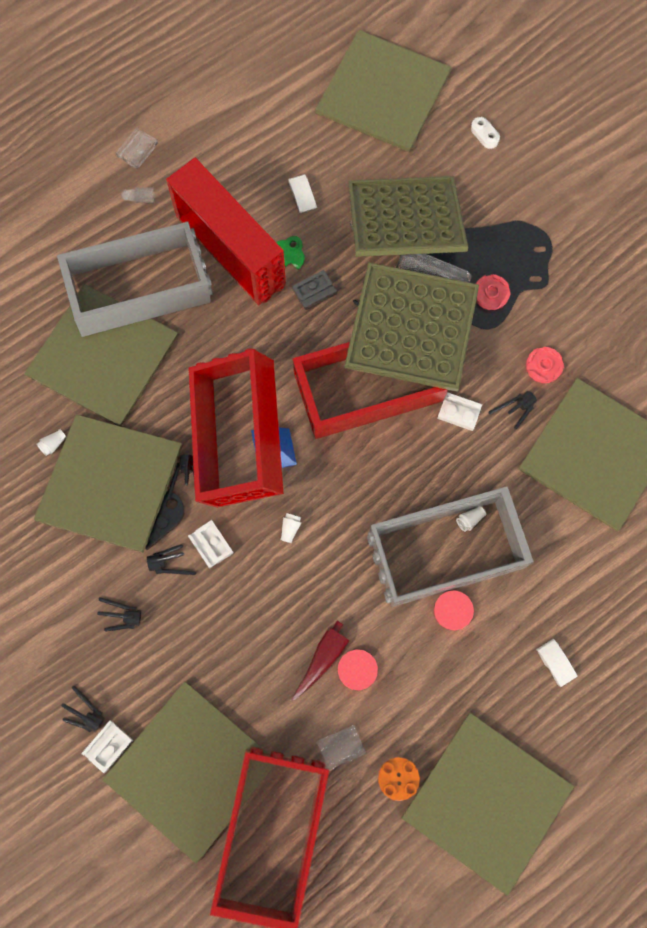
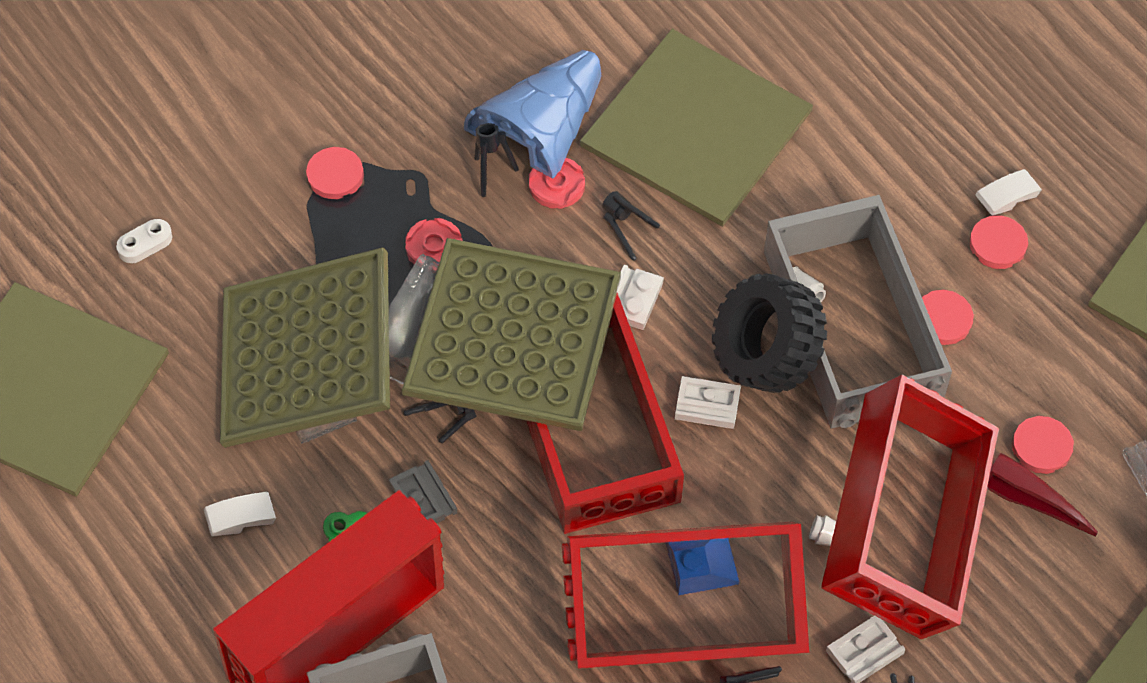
camera: 90 degrees left, 15 degrees down
(285, 602) = (959, 517): none -> red door
(382, 454) = (707, 402): none -> white plate
(421, 484) = (797, 337): none -> black tyre
(516, 653) = (998, 242): none -> coral tile
(541, 233) = (334, 172): none -> coral tile
(563, 315) = (487, 141): none -> black plant
(597, 353) = (544, 109): none -> medium blue cone

